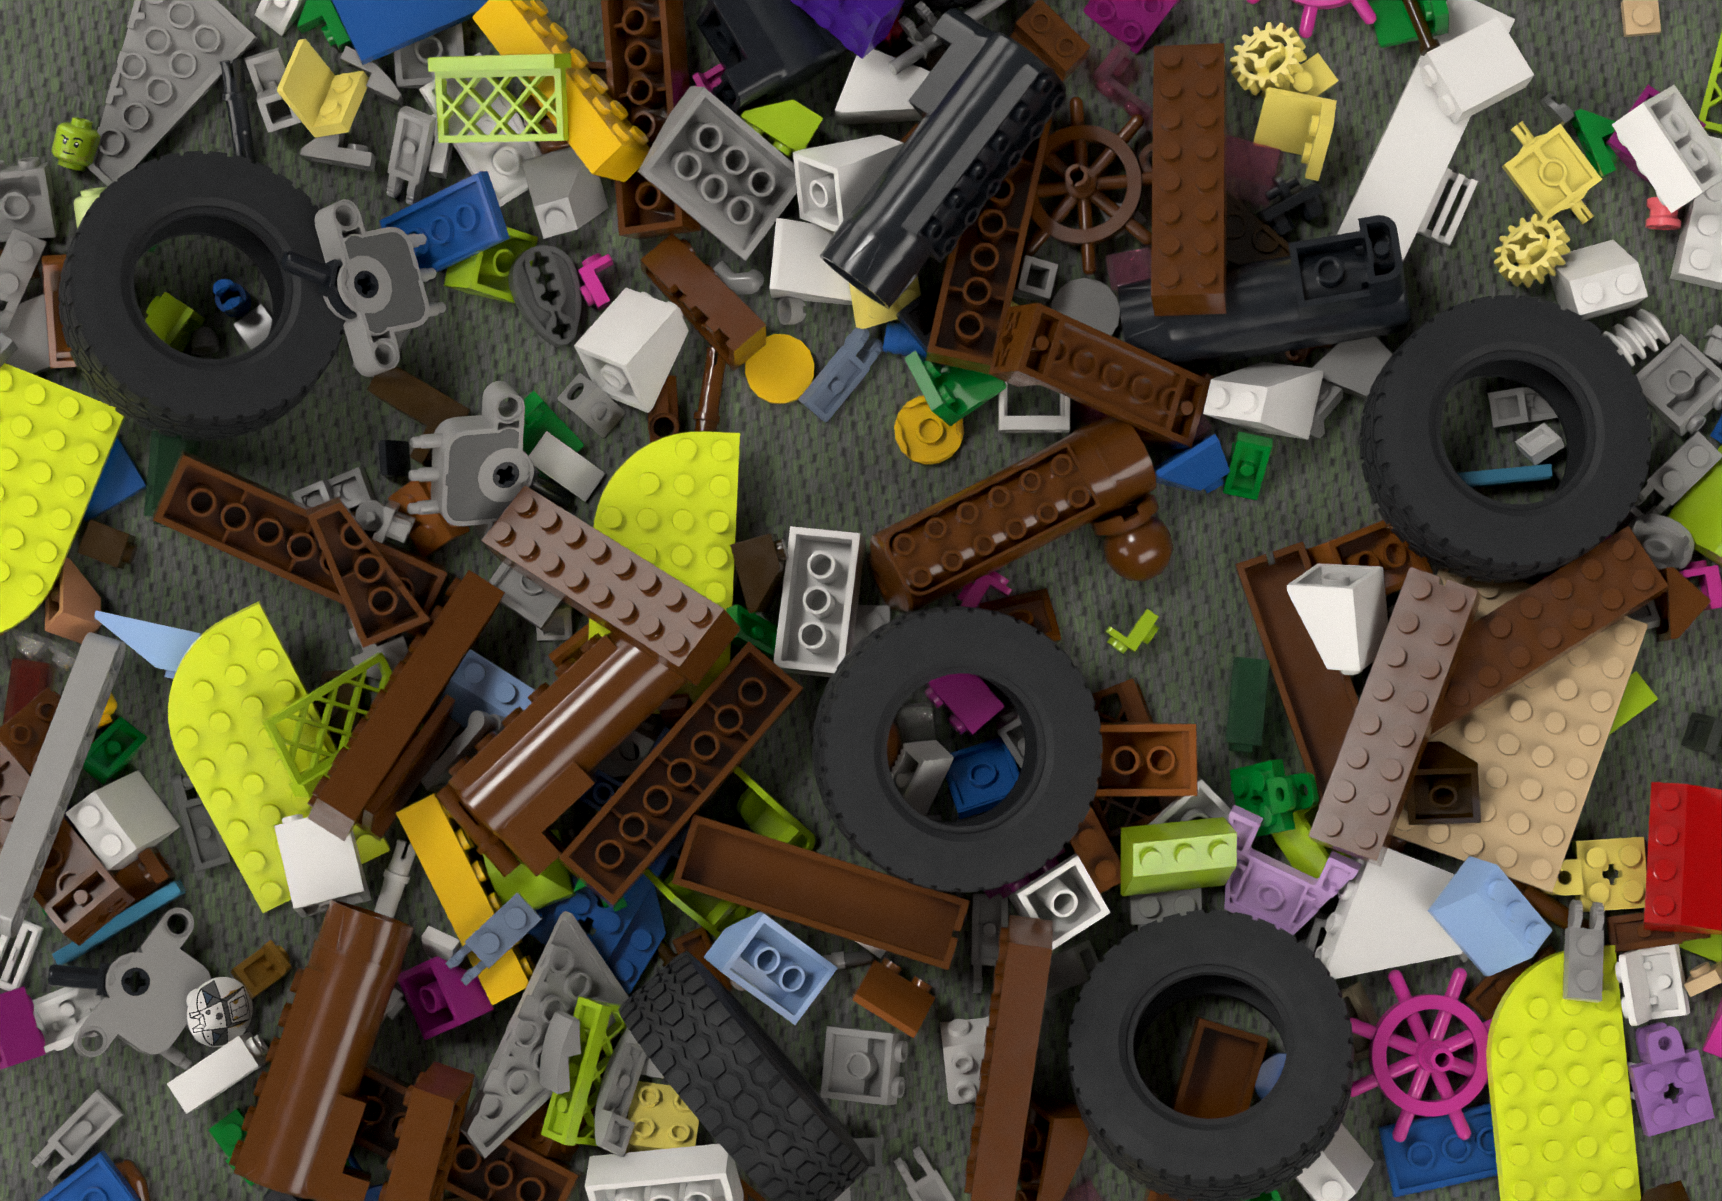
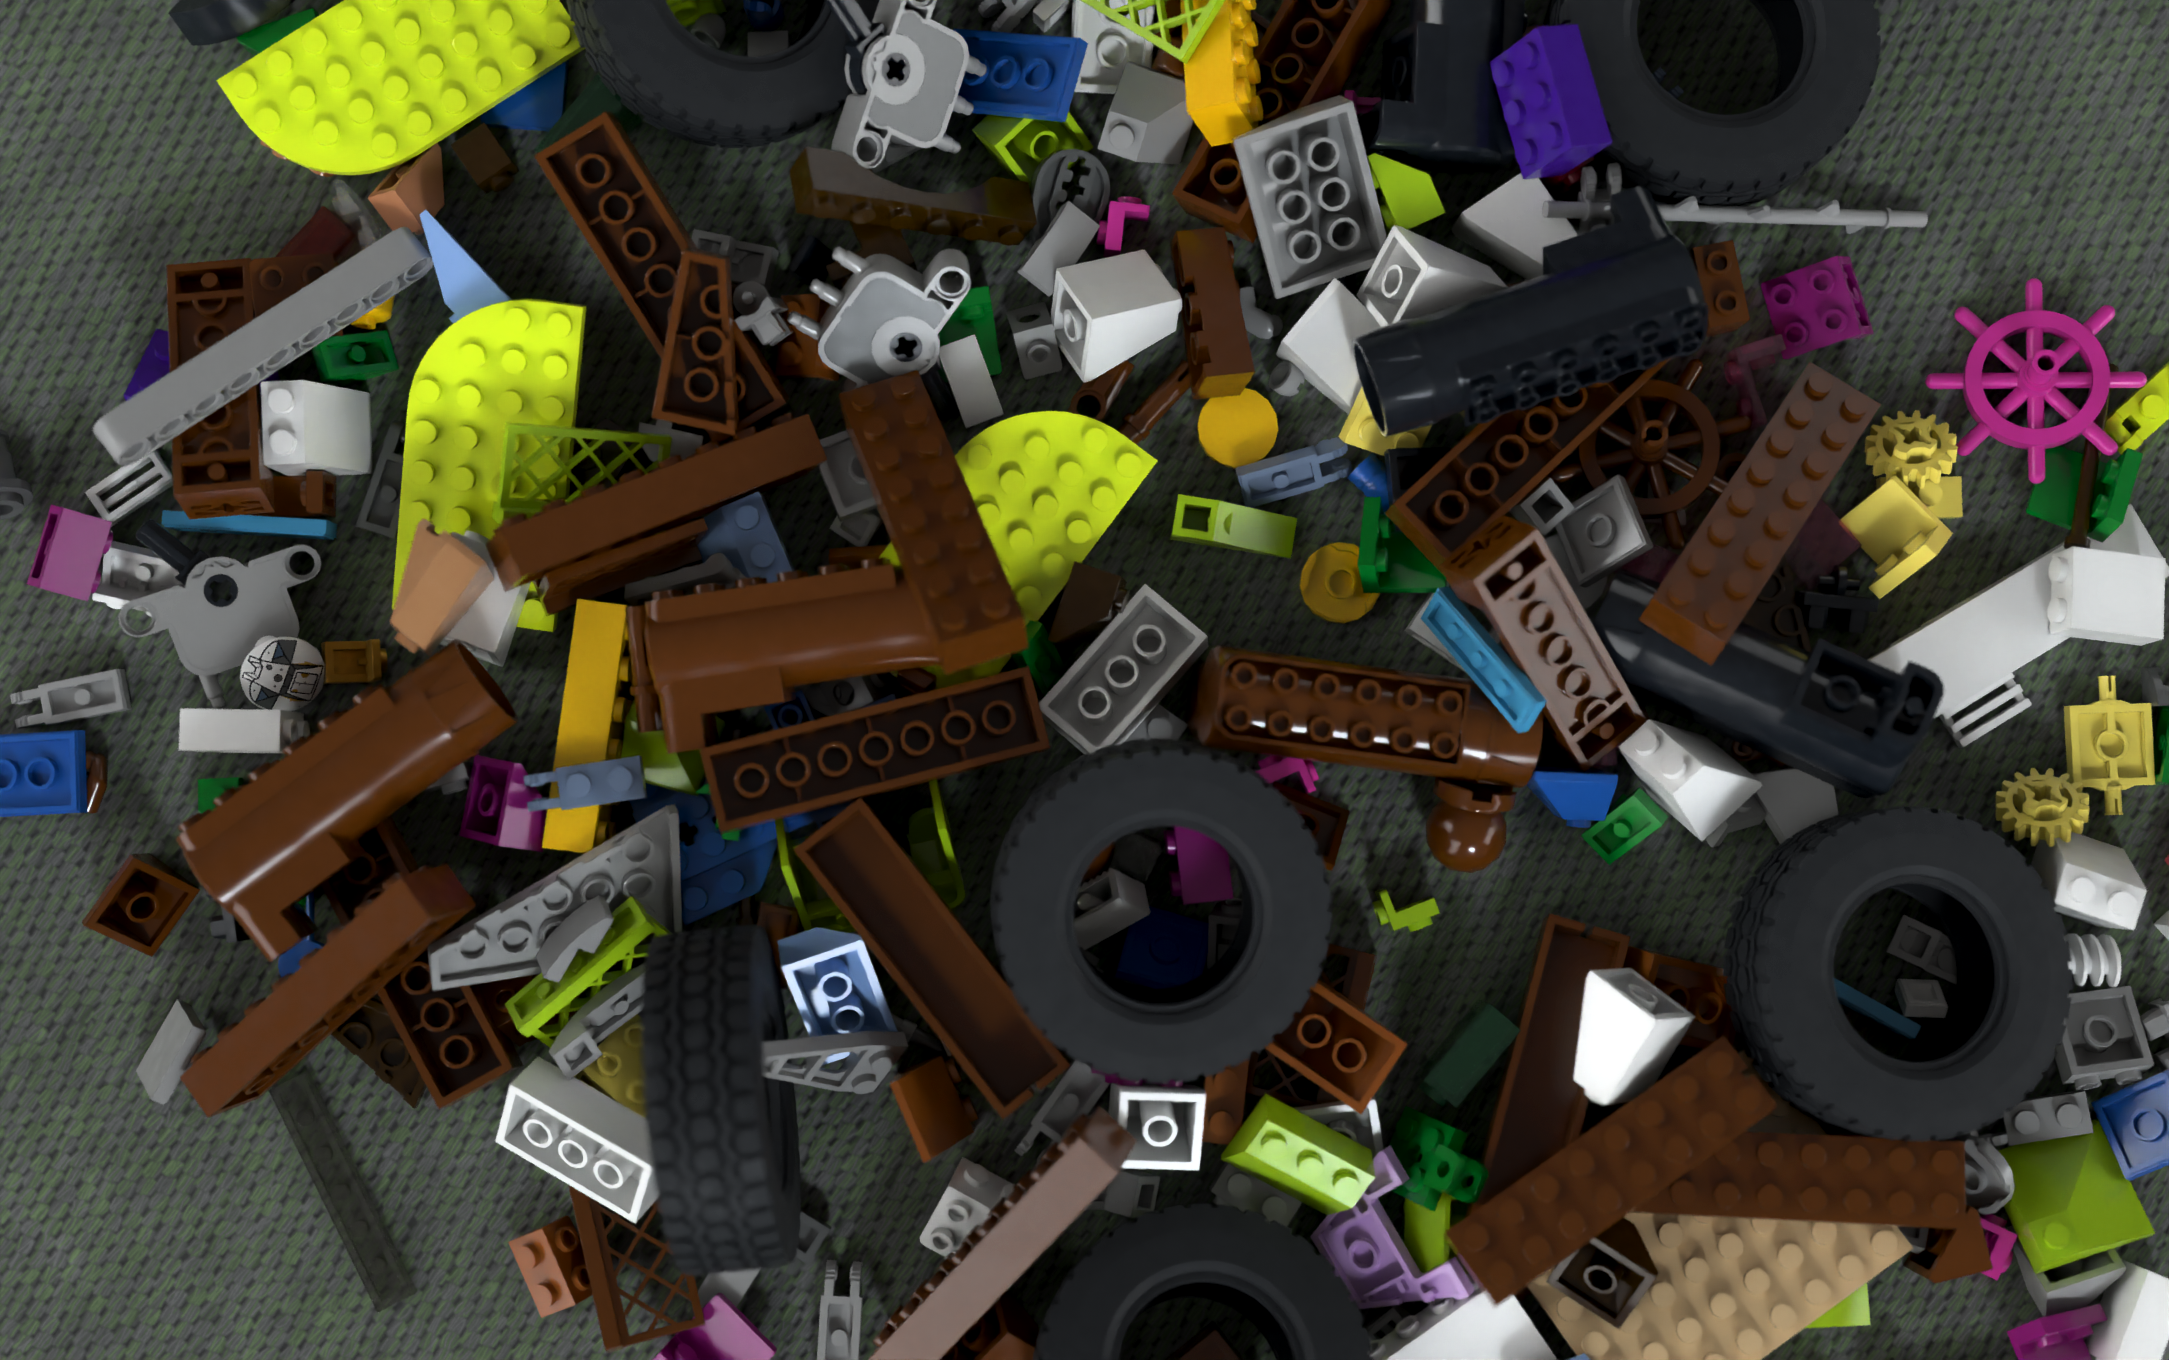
camera: 30 degrees right, 0 degrees up
(294, 871) = (436, 588): none -> medium nougat slope
(385, 394) = (840, 188): none -> dark brown arch
(395, 879) = (538, 663): white pin -> none
(442, 945) = (534, 758): white slope -> none
(564, 329) = (1059, 247): none -> light grey slope
(825, 442) = (1232, 527): none -> lime slope
(827, 1010) = (864, 1069): none -> light grey plate
(863, 1065) = (860, 1149): light grey plate -> none
(1065, 417) = (1483, 659): none -> dark azure tile
(1089, 267) = (1603, 532): none -> light grey tile

